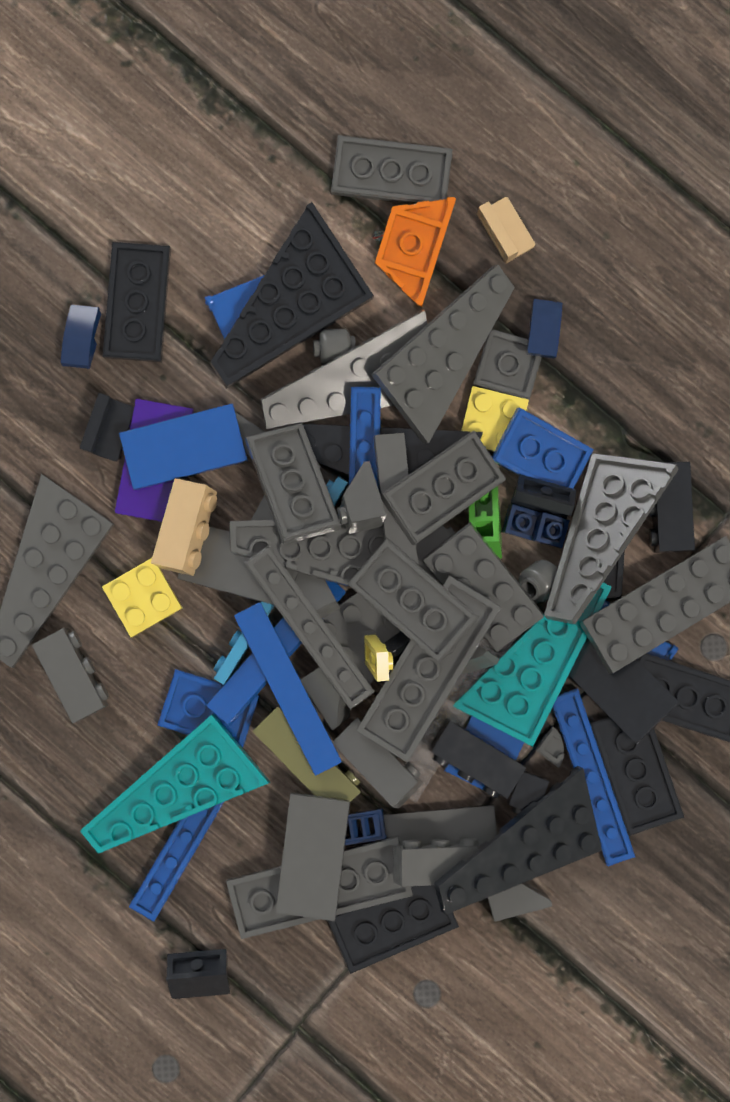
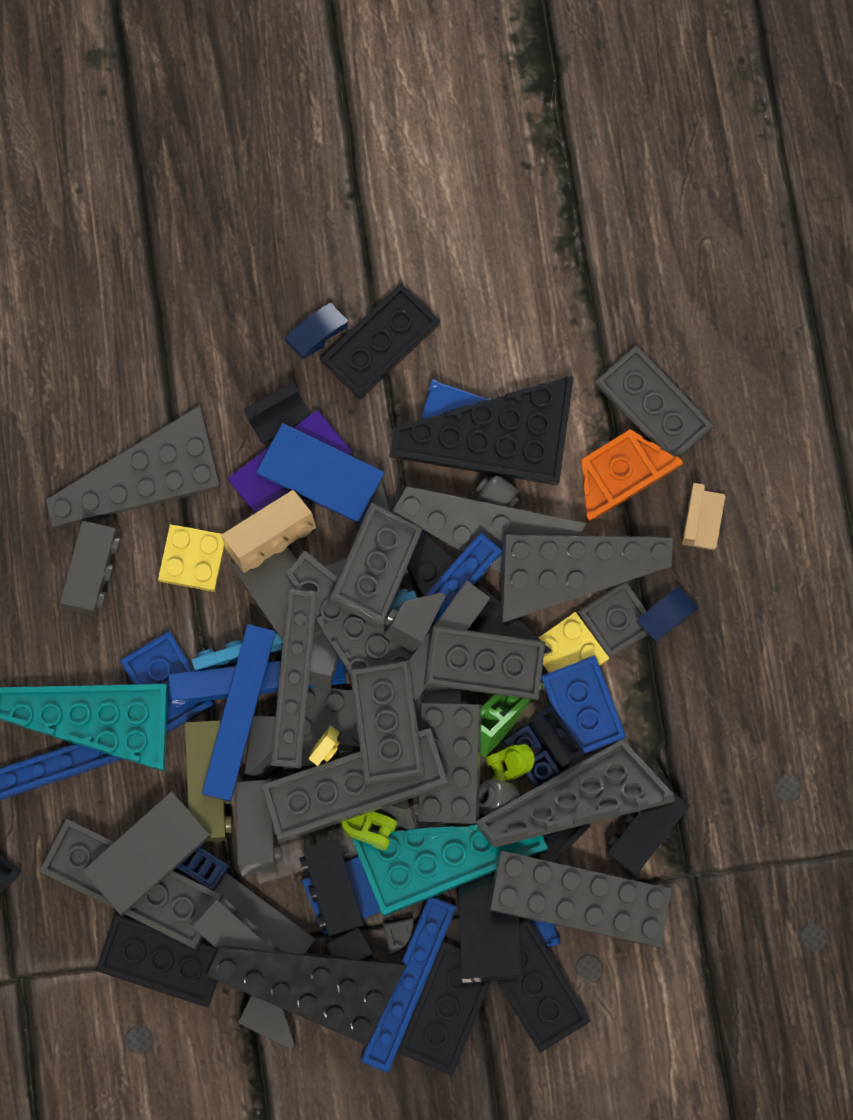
camera: 40 degrees right, 10 degrees down
(459, 696) = (360, 828): none -> lime plate
(531, 539) = (518, 760): none -> lime plate

